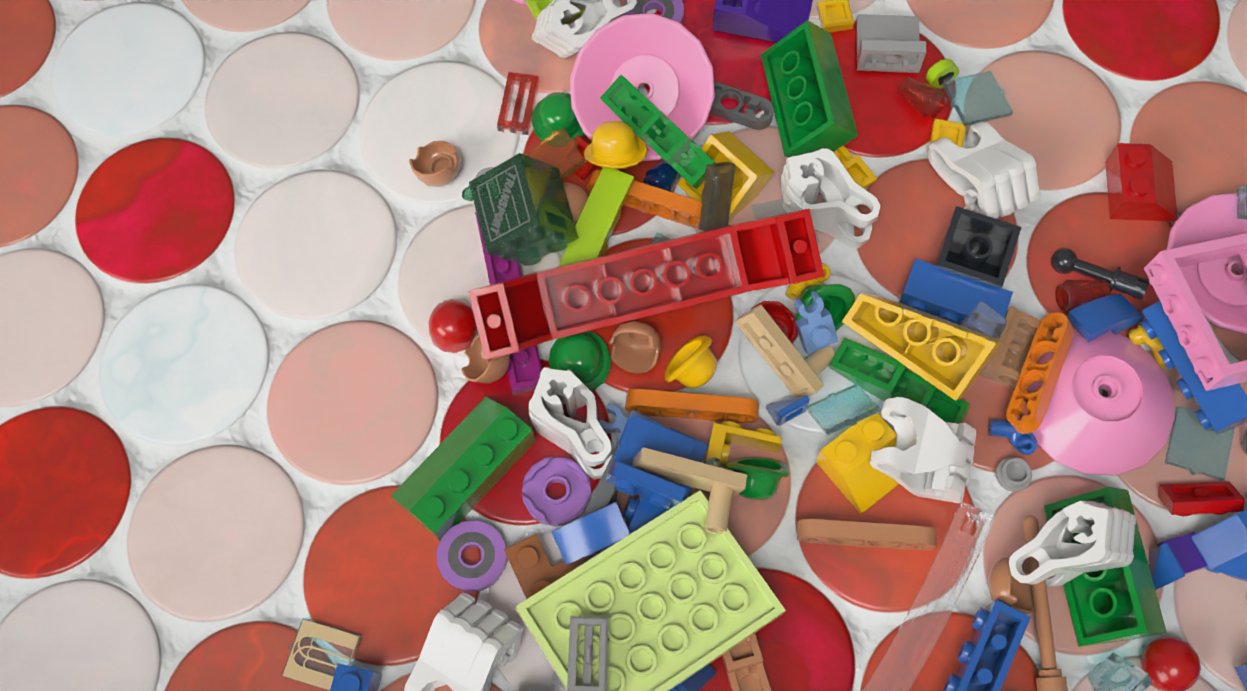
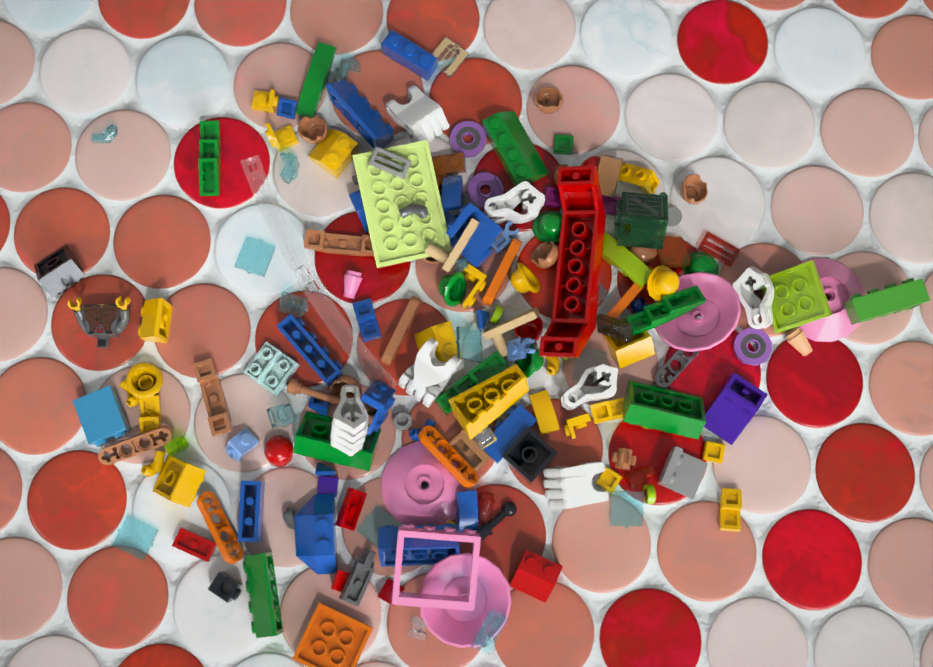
camera: 105 degrees right, 10 degrees up
(352, 440) = (548, 100): none -> nougat hair
(424, 392) = (563, 144): none -> green tile
(443, 255) = (639, 176): none -> yellow bracket
(451, 289) = (609, 173): none -> medium nougat hinge
(655, 577) = (414, 208): none -> dark grey arm
(769, 389) = (497, 312): none -> lime tile
(820, 657) = (351, 283): none -> bright pink cone
(873, 604) = (367, 320): none -> blue slope
(891, 211) = (578, 422): none -> yellow bracket
(892, 260) = (544, 412): none -> yellow slope
(909, 122) = (623, 459): none -> nougat gear
(1017, 511) = (380, 397): none -> blue bracket
(1061, 626) = (319, 405): none -> blue slope

